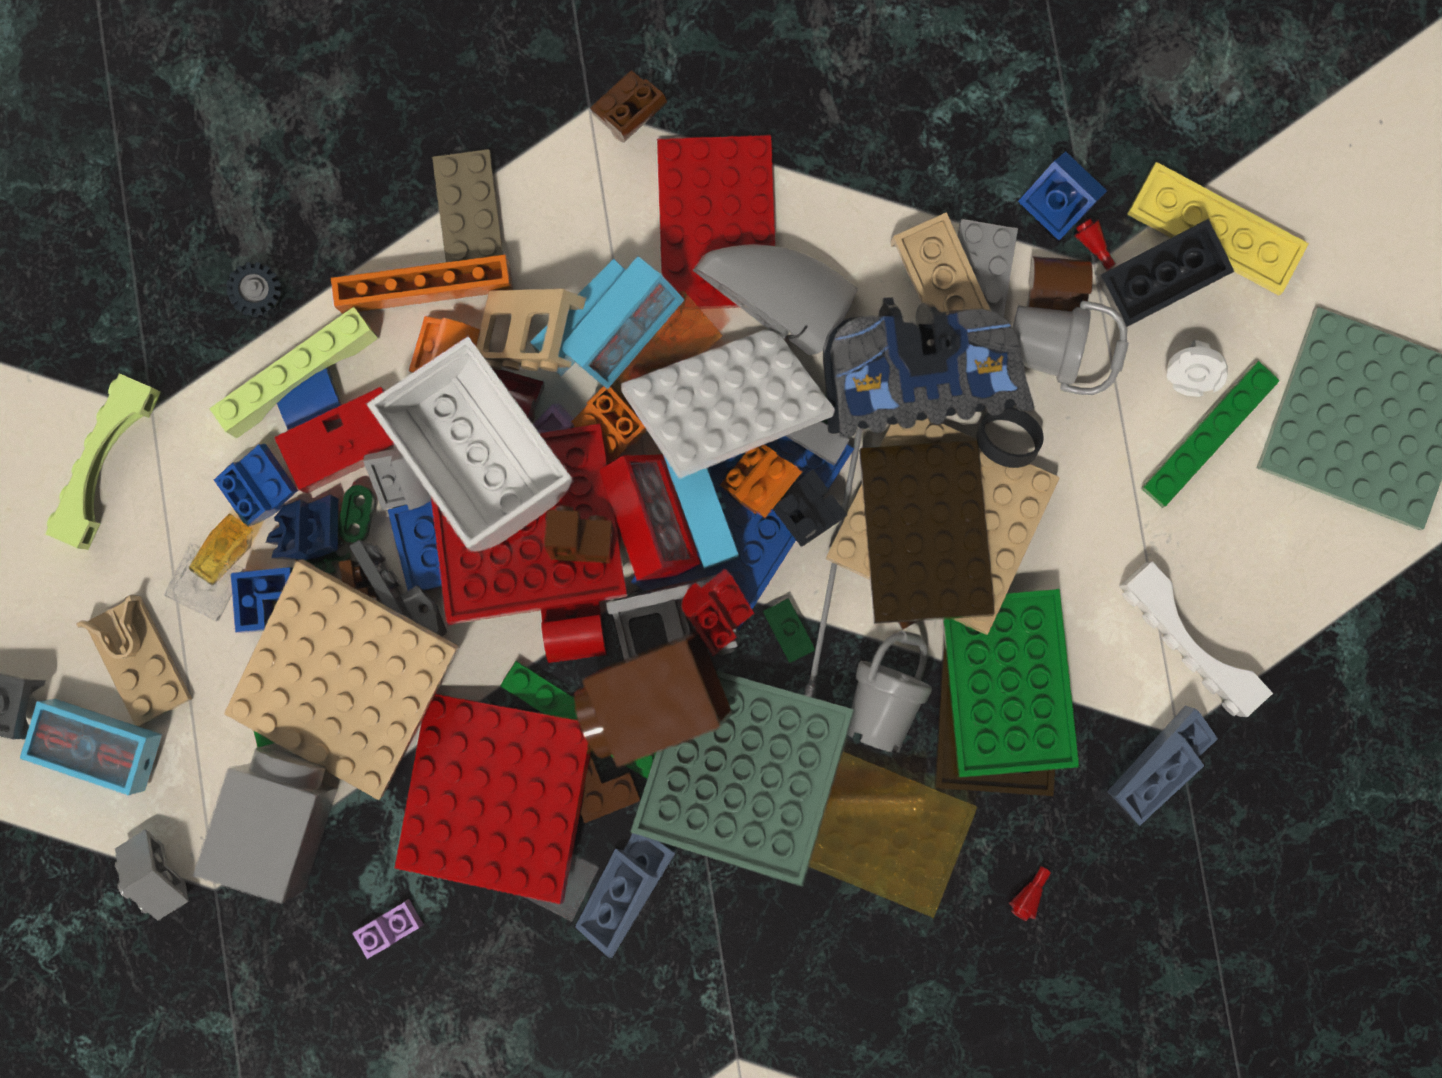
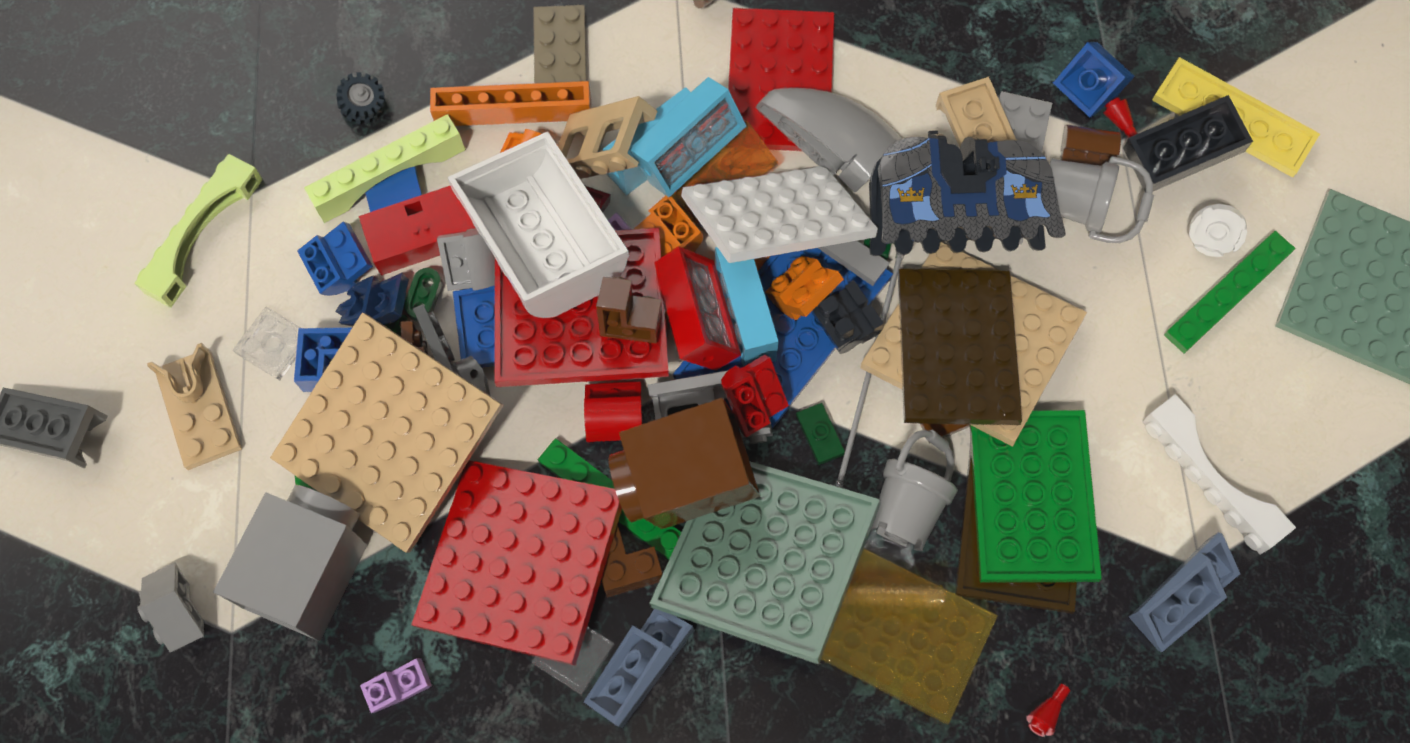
camera: 10 degrees right, 15 degrees down
(90, 746) = (138, 477): brick -> none
(222, 549) = (294, 310): clear yellow slope -> none
(1002, 457) = (1034, 286): black tyre -> none

